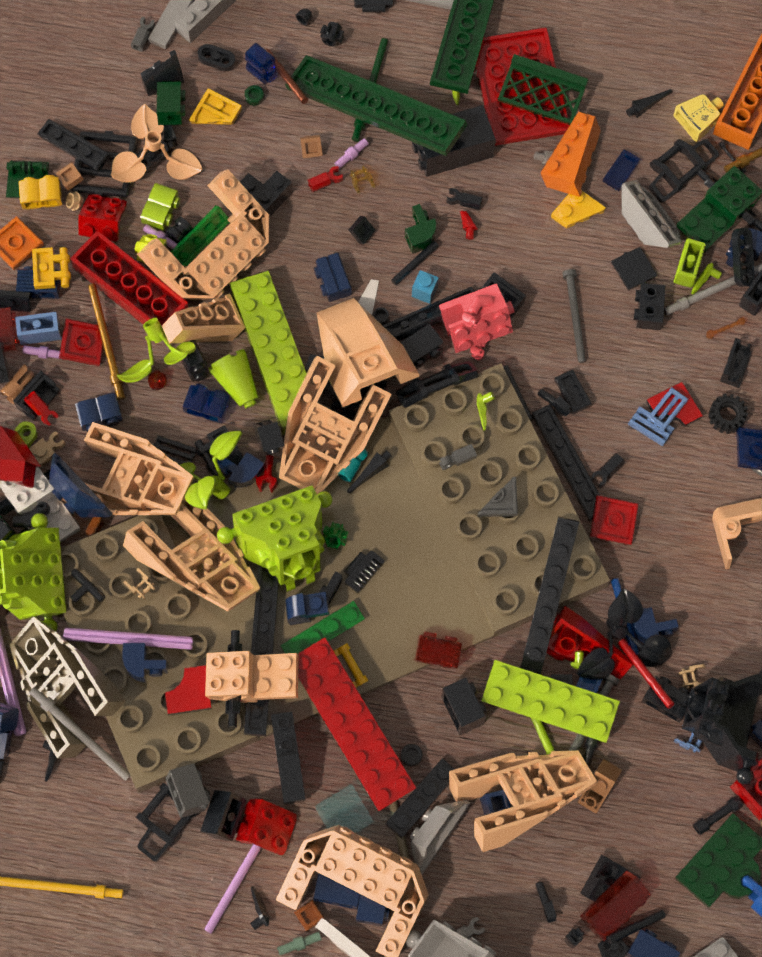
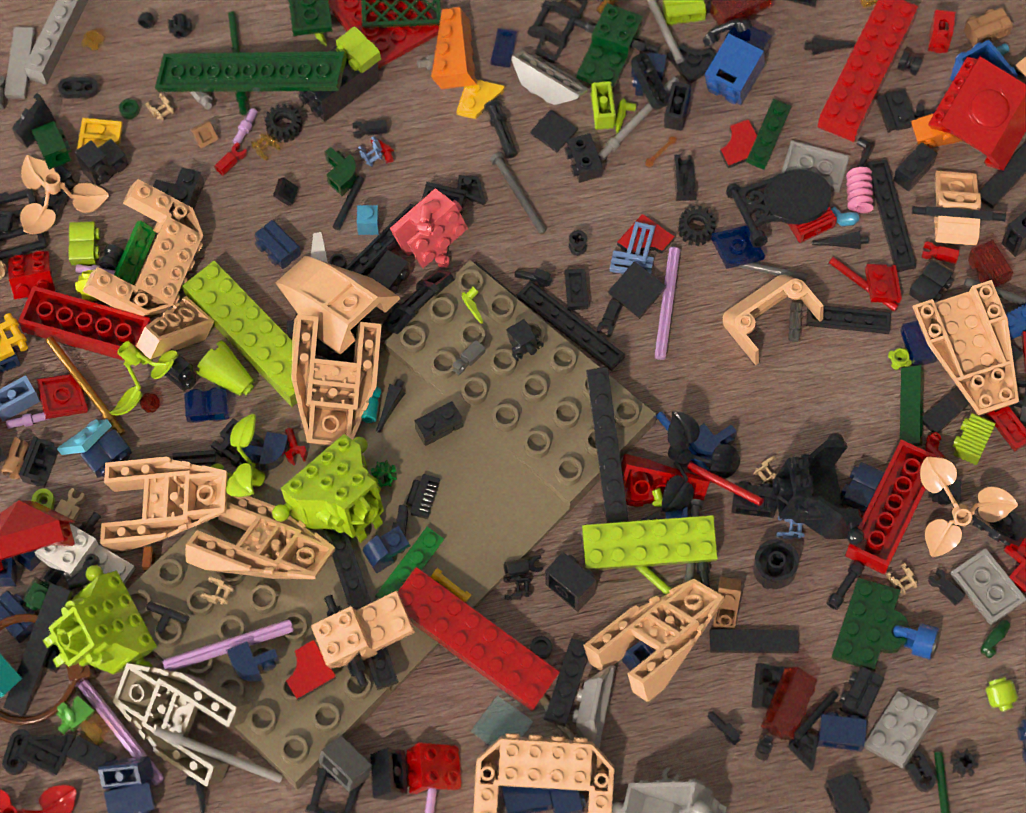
camera: 20 degrees left, 5 degrees down
(40, 407) = (47, 471): red bar -> none
(75, 491) = (117, 531): dark blue wedge -> none
(86, 390) = (85, 438): none -> medium azure wing
(207, 137) = (102, 161): none -> black brick
(248, 12) = (92, 35): none -> clear yellow plate
(260, 63) = (124, 76): clear blue brick -> none
(268, 436) = (281, 409): black brick -> none
(276, 107) = (154, 111): none -> tan piece
(288, 758) = (427, 695): black brick -> none
(289, 81) = (152, 79): copper bar -> none
(324, 112) = (203, 99): none -> light grey bar
(387, 153) = (283, 113): none -> black tyre
(405, 508) = (438, 423): none -> black brick
(412, 697) = (519, 594): none -> black piece
(425, 672) = (521, 566): none -> black bar
(438, 651) = (525, 541): clear red brick -> none
(462, 222) = (376, 148): none -> medium blue piece
(481, 123) = (359, 50): none -> lime brick
(503, 502) = (528, 381): dark grey tile -> none
(515, 462) = (523, 339): none -> black piece
(534, 294) = (473, 188): none -> black piece
(573, 391) = (546, 260): black plate -> none
(585, 239) = (499, 120): none -> black pin
(588, 429) = (576, 289): none -> black plate
(606, 381) = (574, 239): none -> black bush
(609, 832) = (753, 641): none -> black tile
(614, 520) = (635, 360): red plate -> none
(645, 453) = (637, 289): none -> black tile
(668, 477) = (667, 303): none -> lavender axle
(671, 764) = (783, 555): none -> black brick
(687, 925) = (862, 693): none -> black brick

